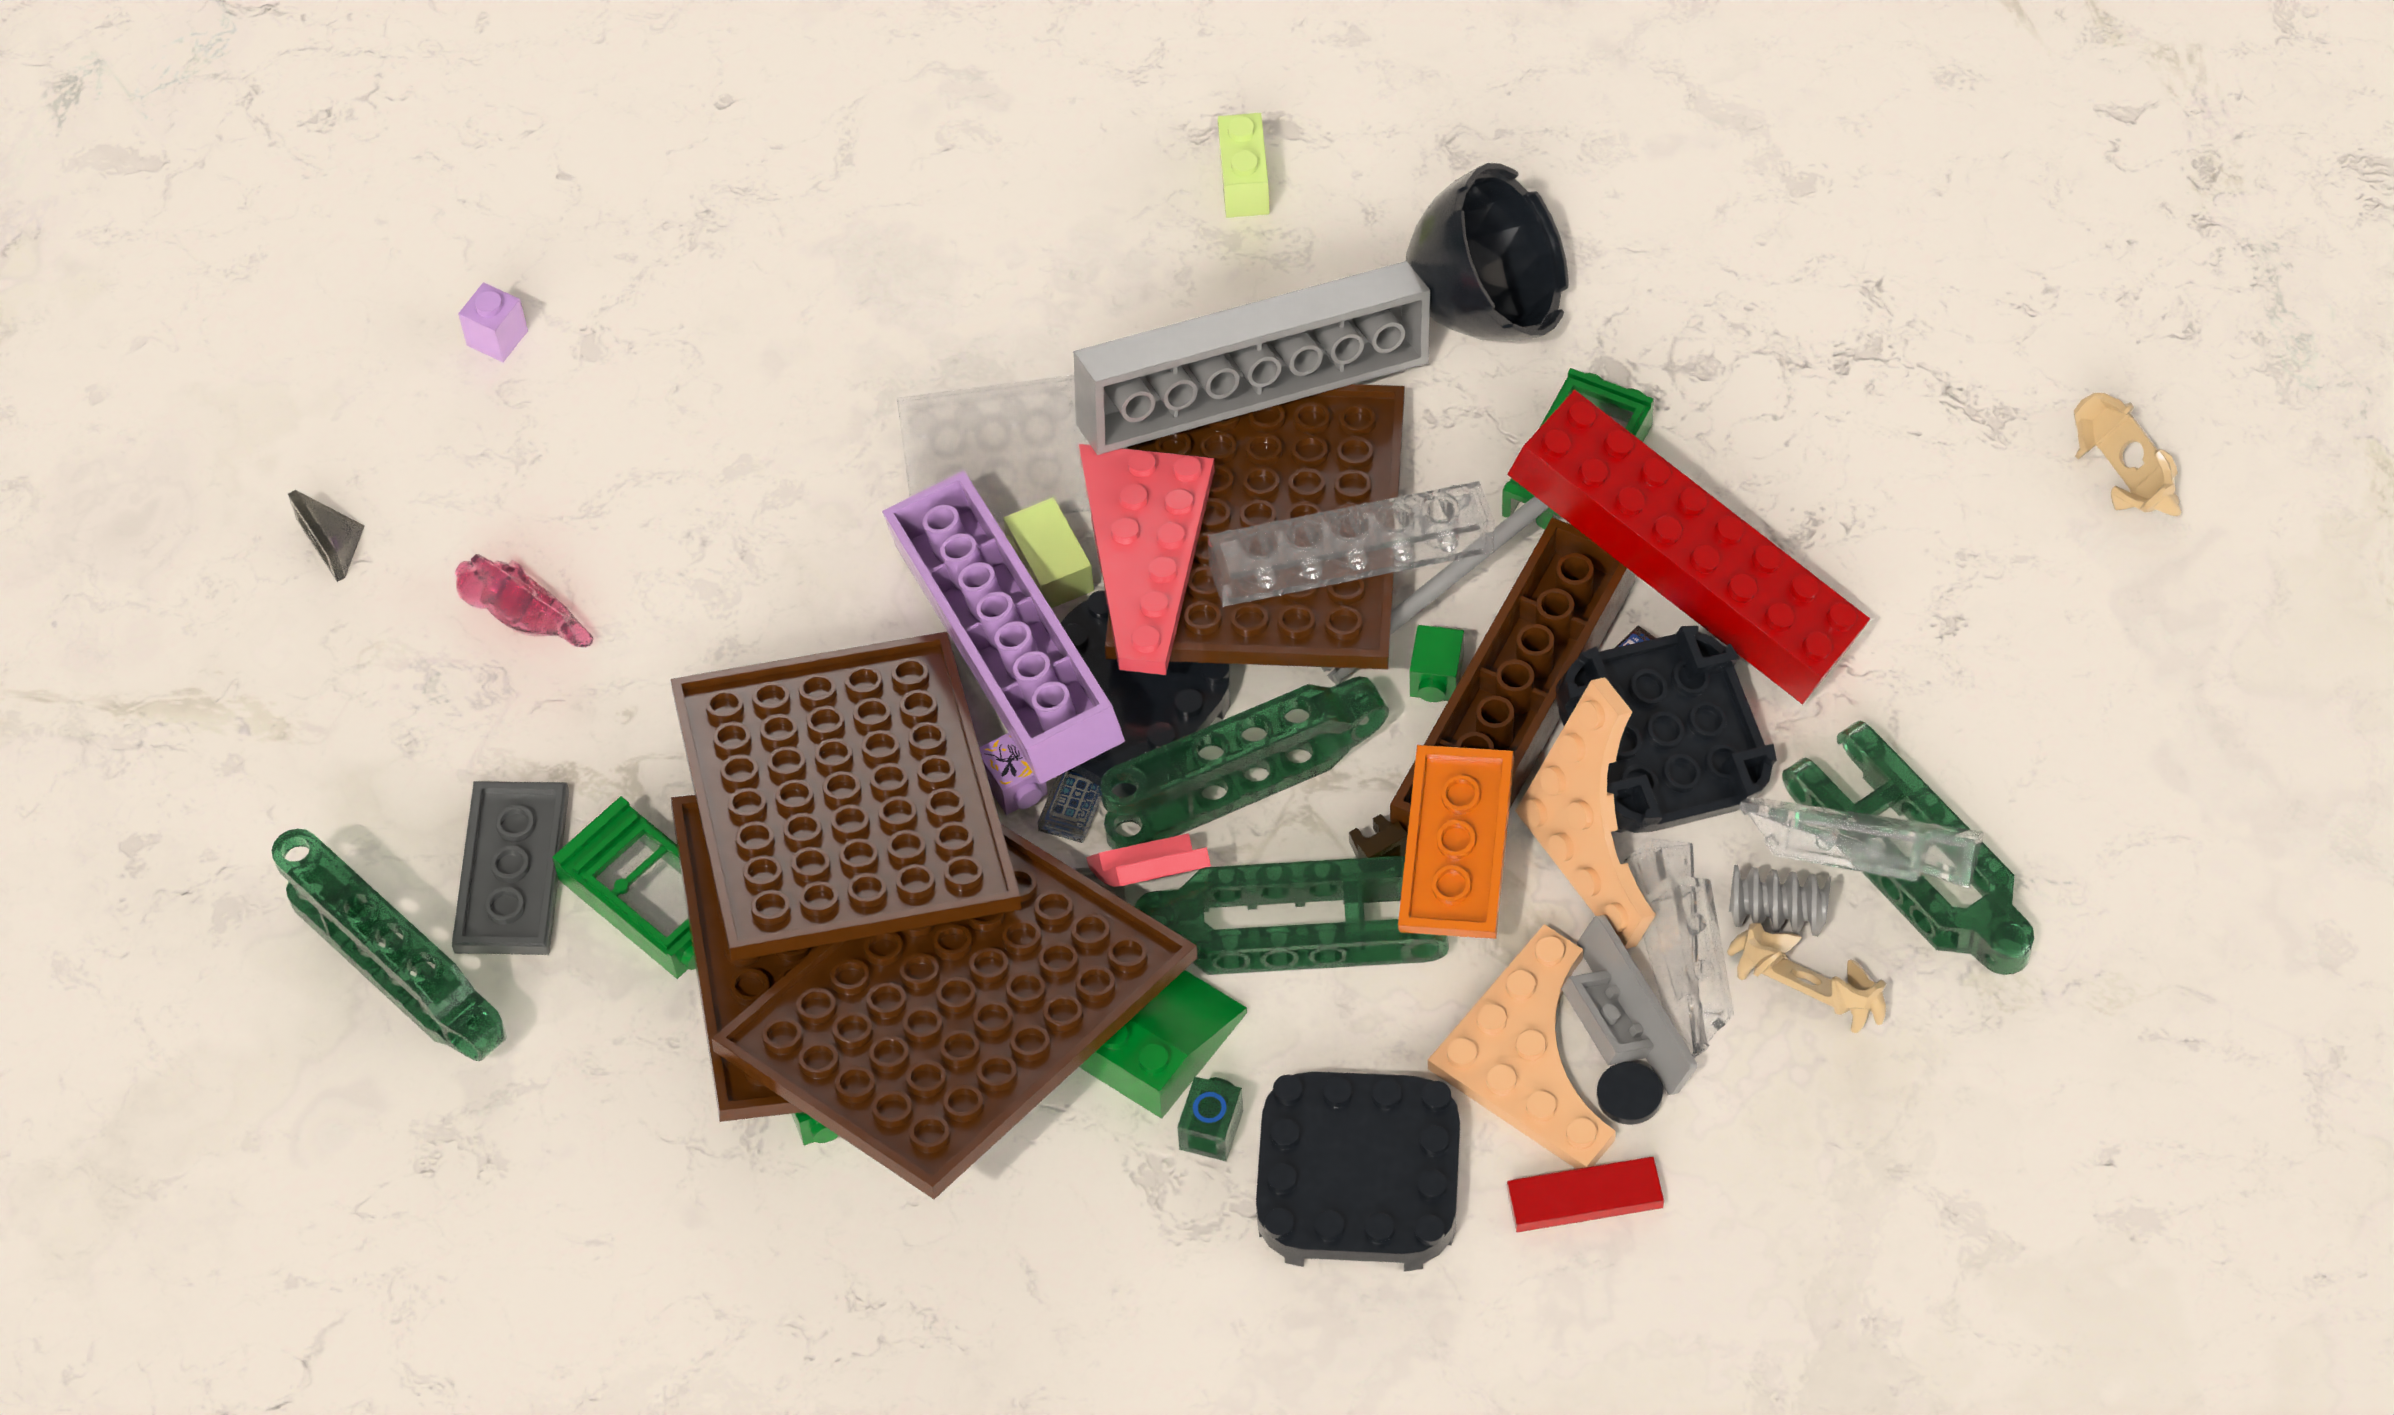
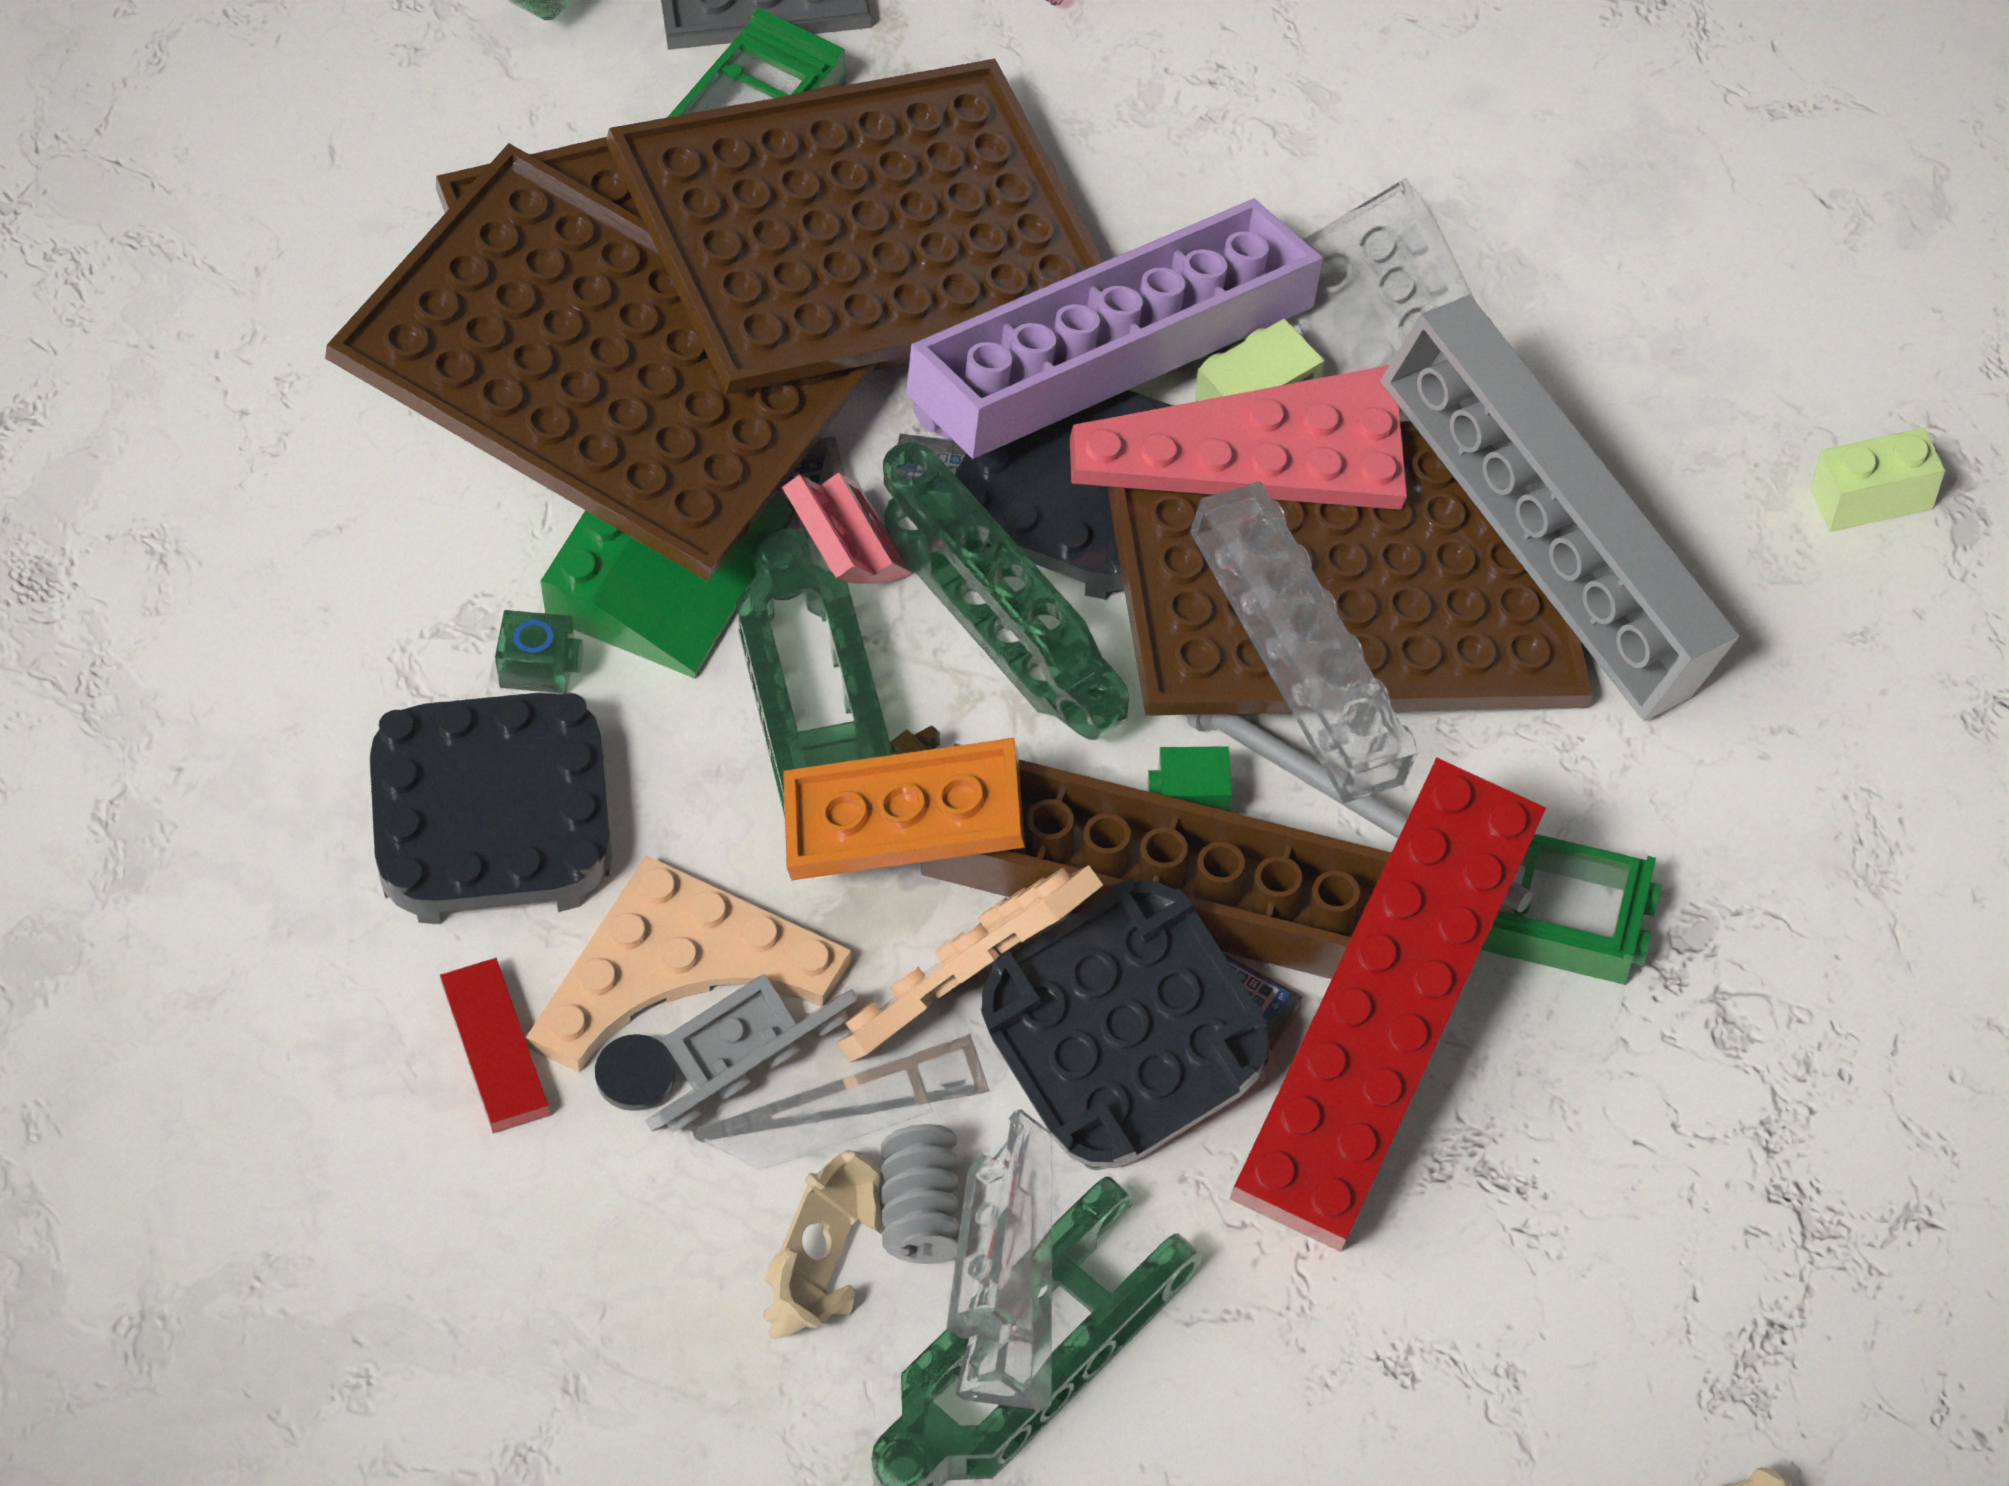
camera: 75 degrees right, 0 degrees up
(1491, 257) = (1797, 761): black piece -> none

